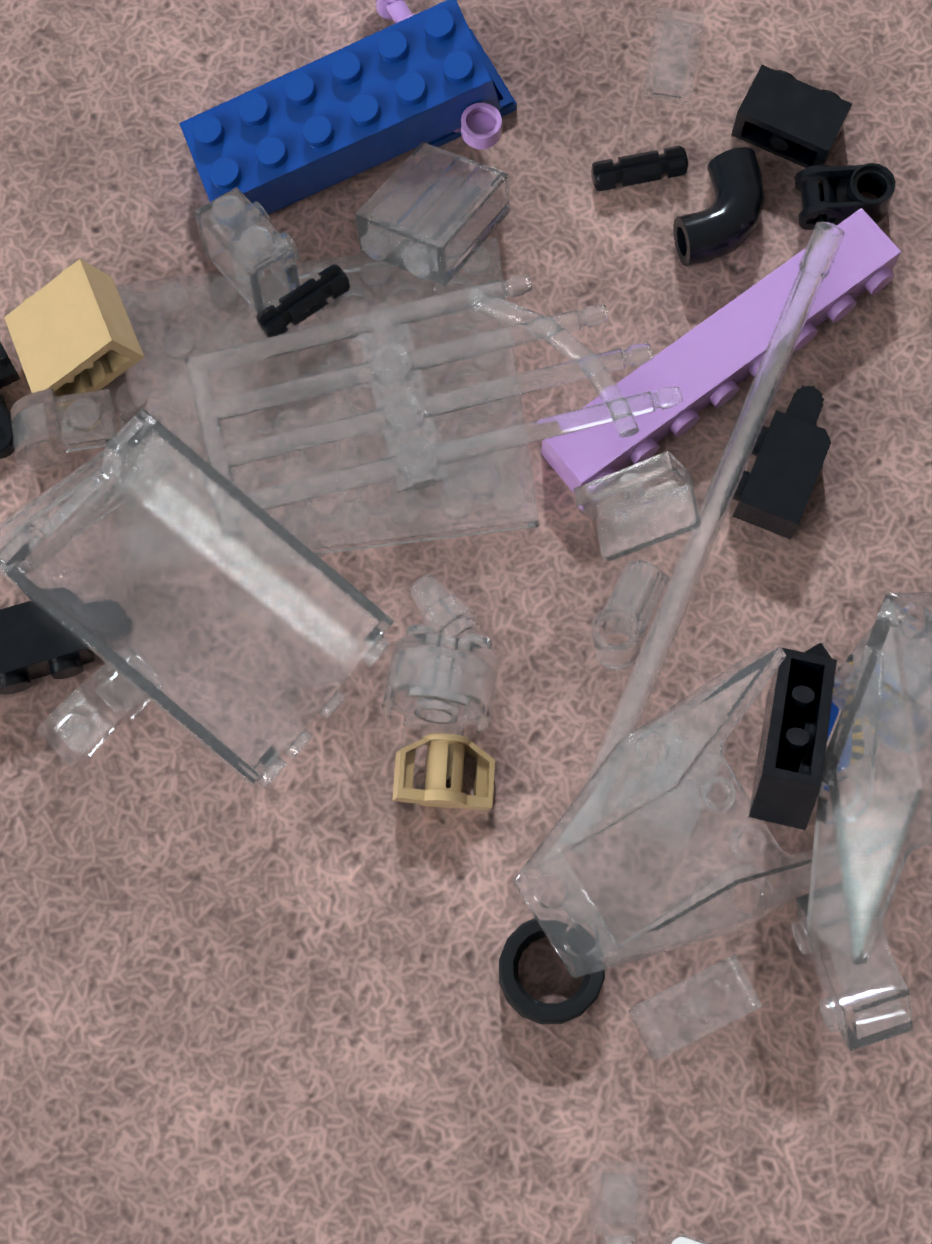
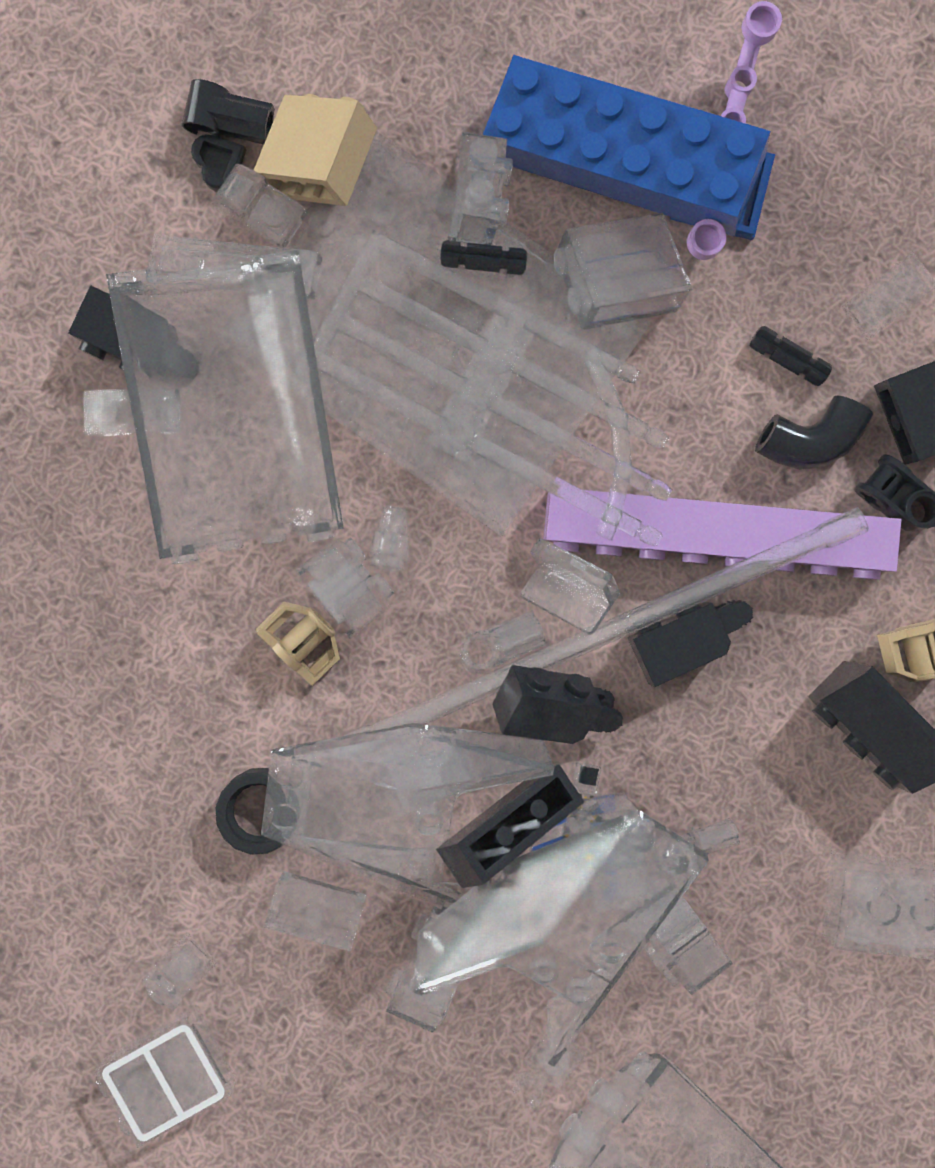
camera: 40 degrees right, 15 degrees up
(725, 620) = (553, 706): none -> black hinge

